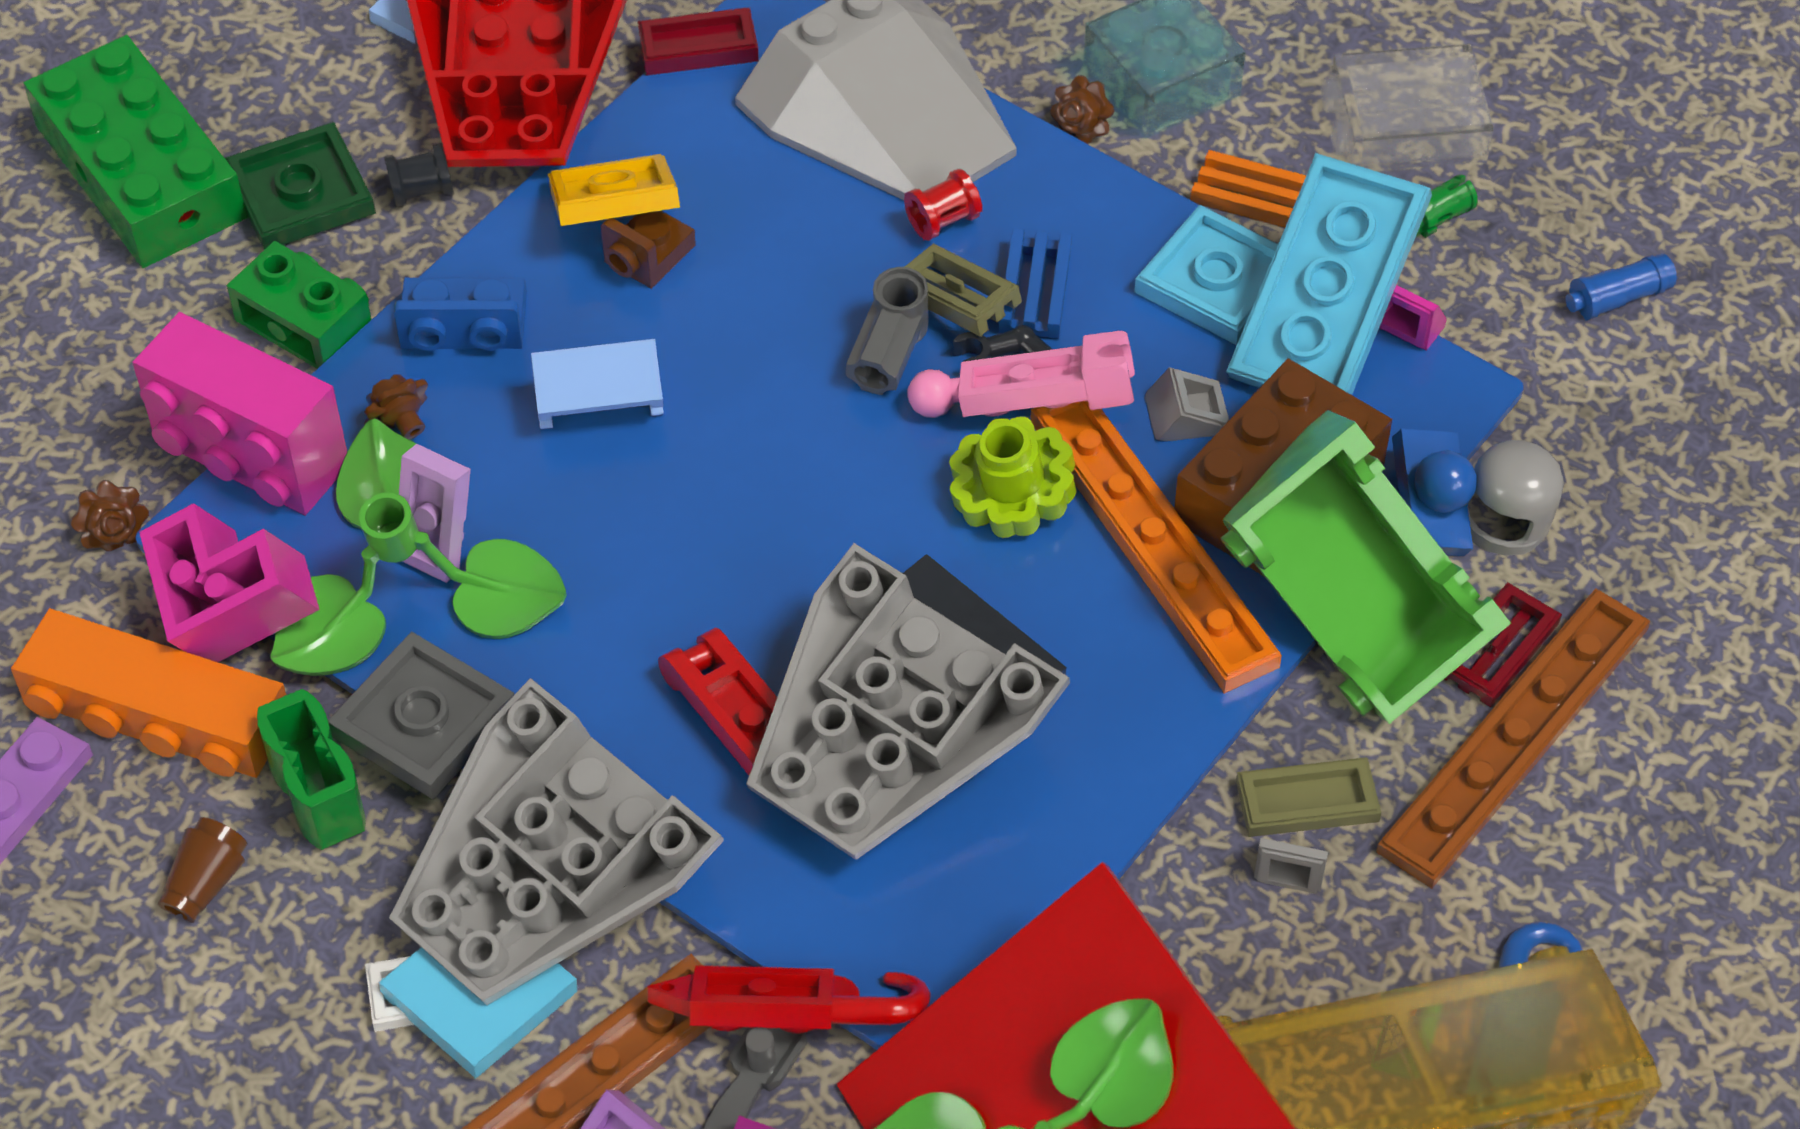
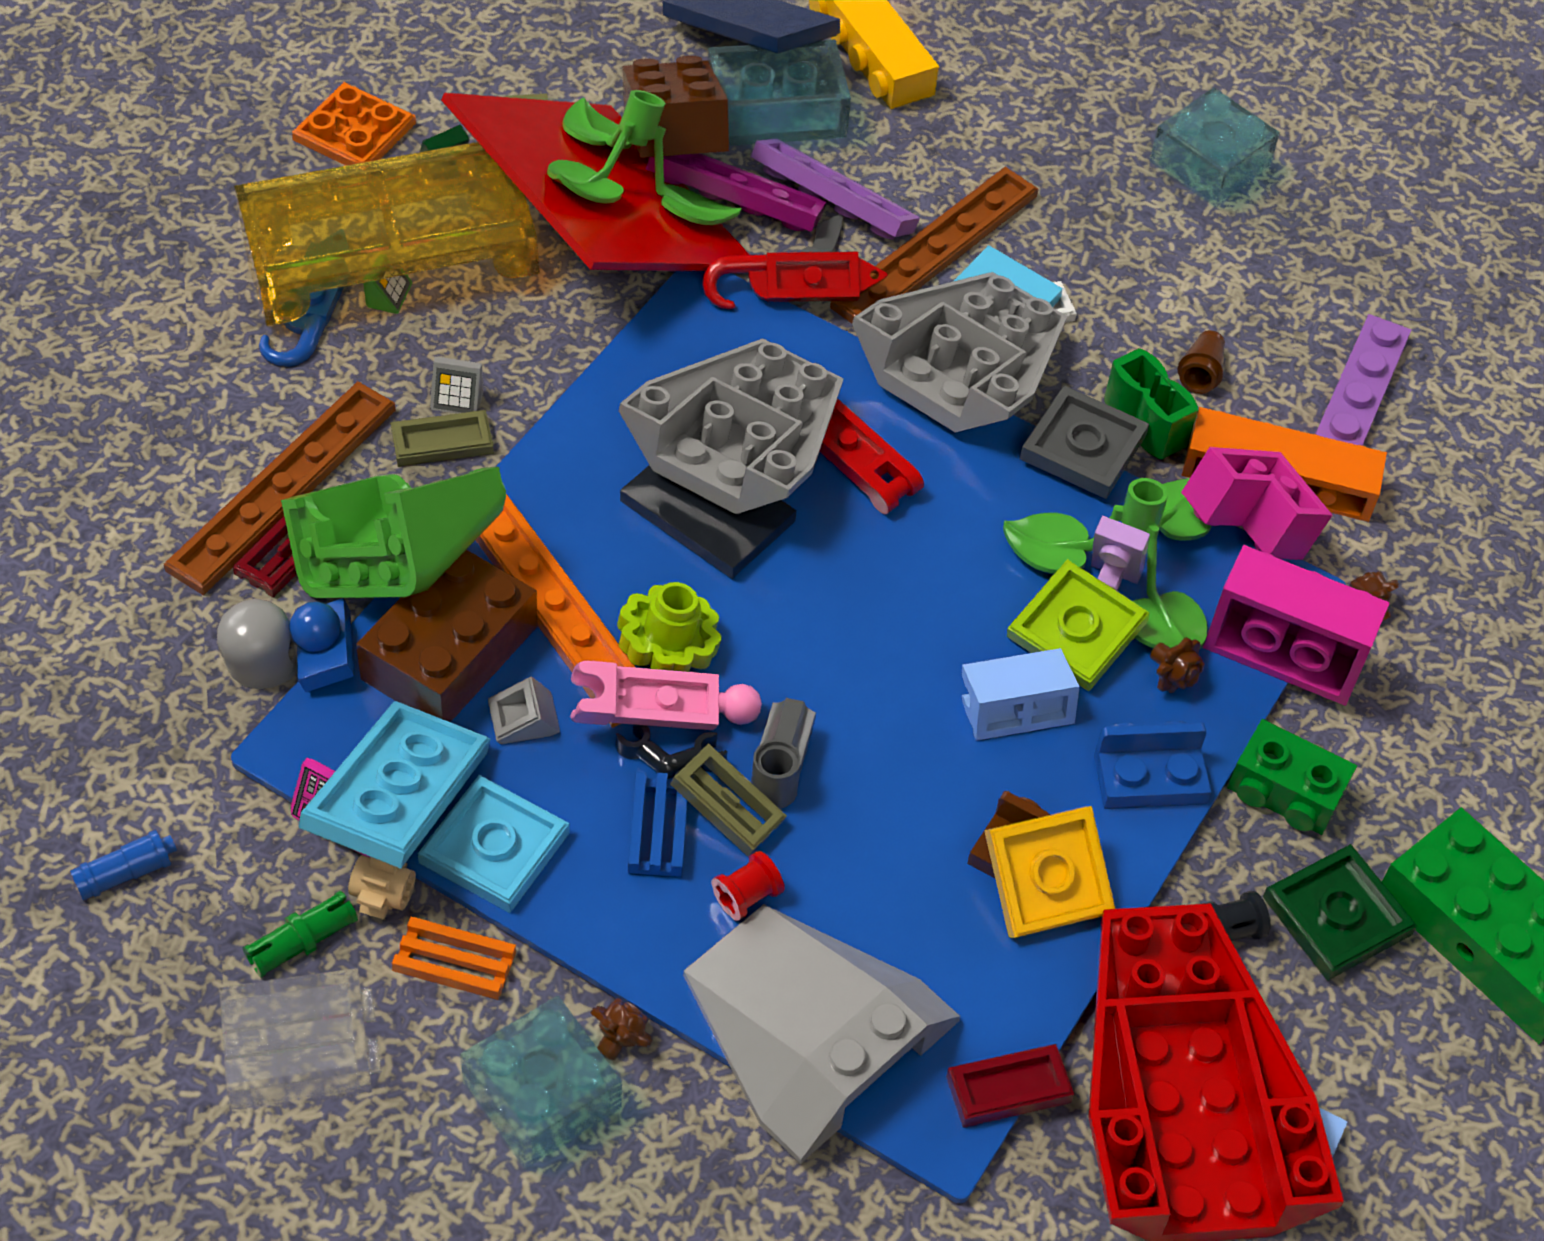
camera: 170 degrees right, 0 degrees up
(514, 467) = (1082, 619): none -> lime plate

